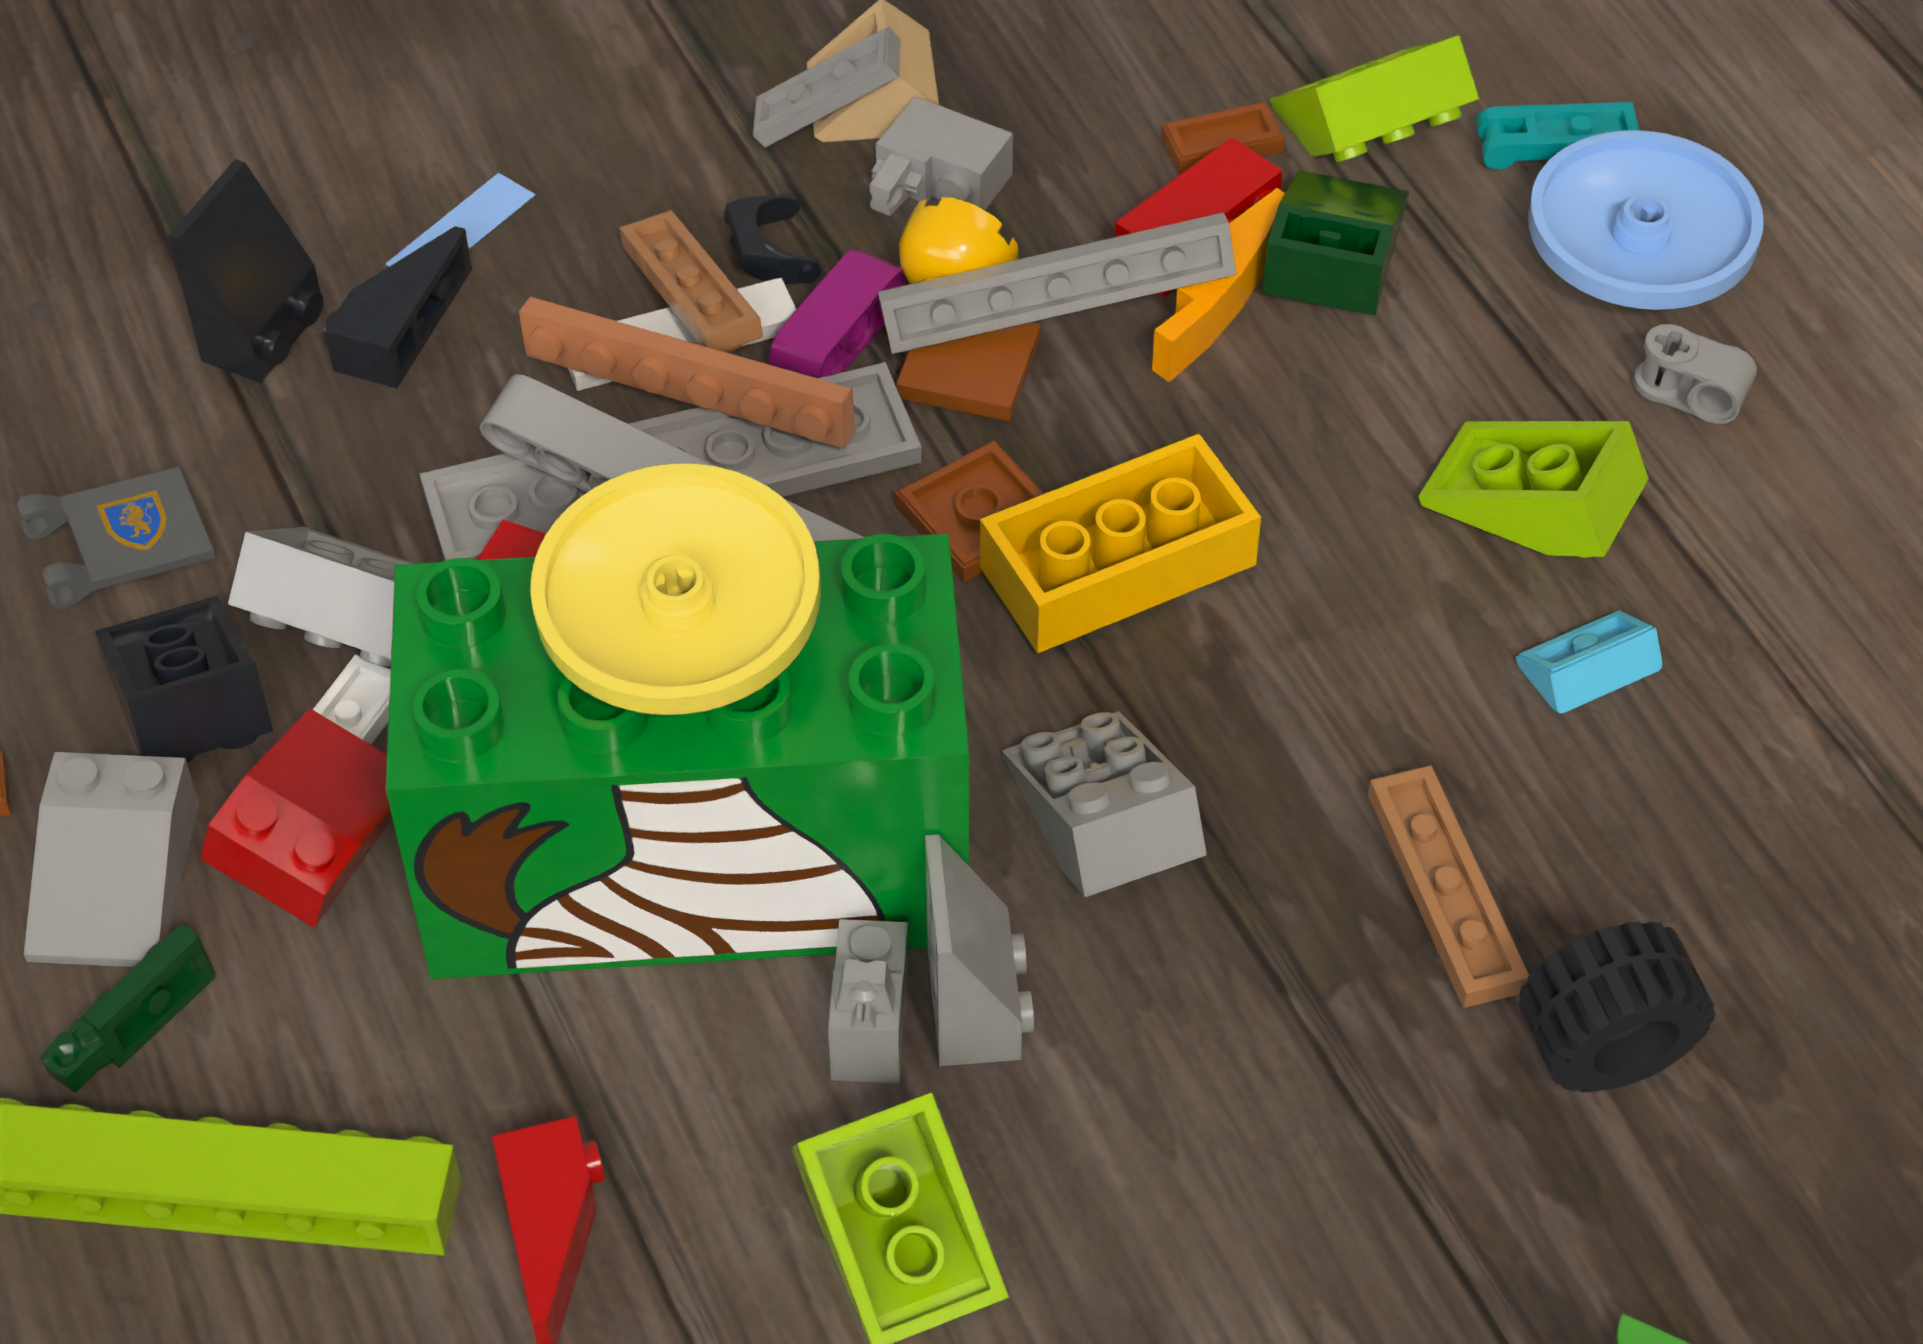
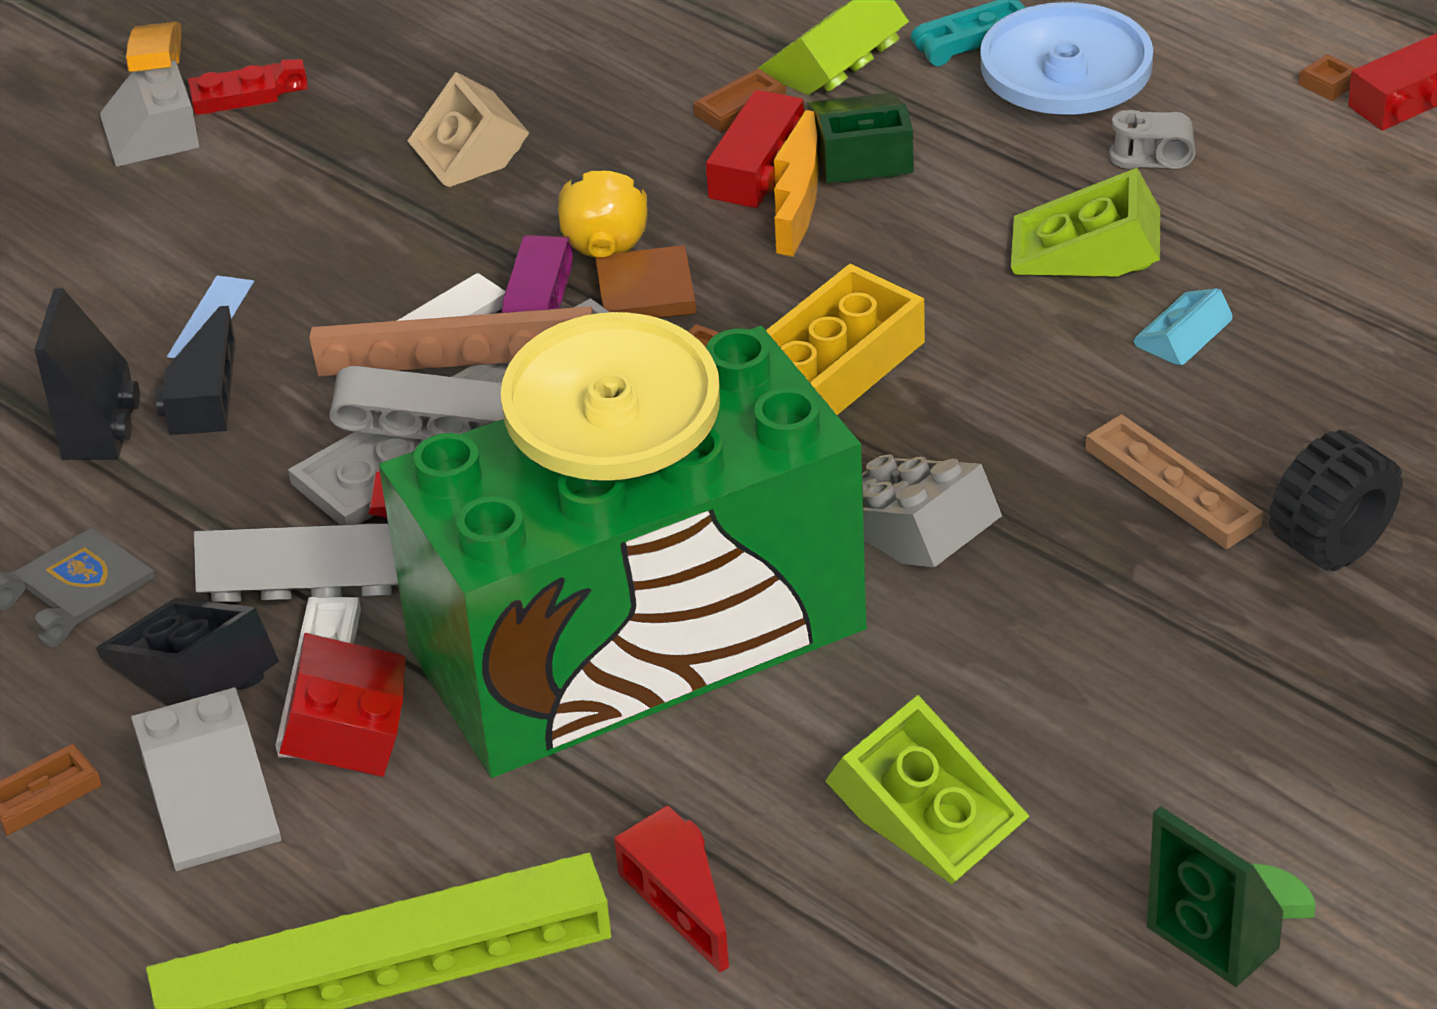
camera: 20 degrees left, 10 degrees down
(131, 1010) = (285, 865): dark green hinge -> none
(691, 282) = (416, 289): medium nougat plate -> none
(755, 252) = (450, 263): black helmet -> none
(827, 87) = (443, 142): light grey tile -> none
(868, 1001) = (827, 674): light grey hinge -> none
(939, 156) = (543, 162): light grey hinge -> none
(972, 964) = (884, 627): light grey slope -> none
(1057, 283) = (689, 208): light grey plate -> none

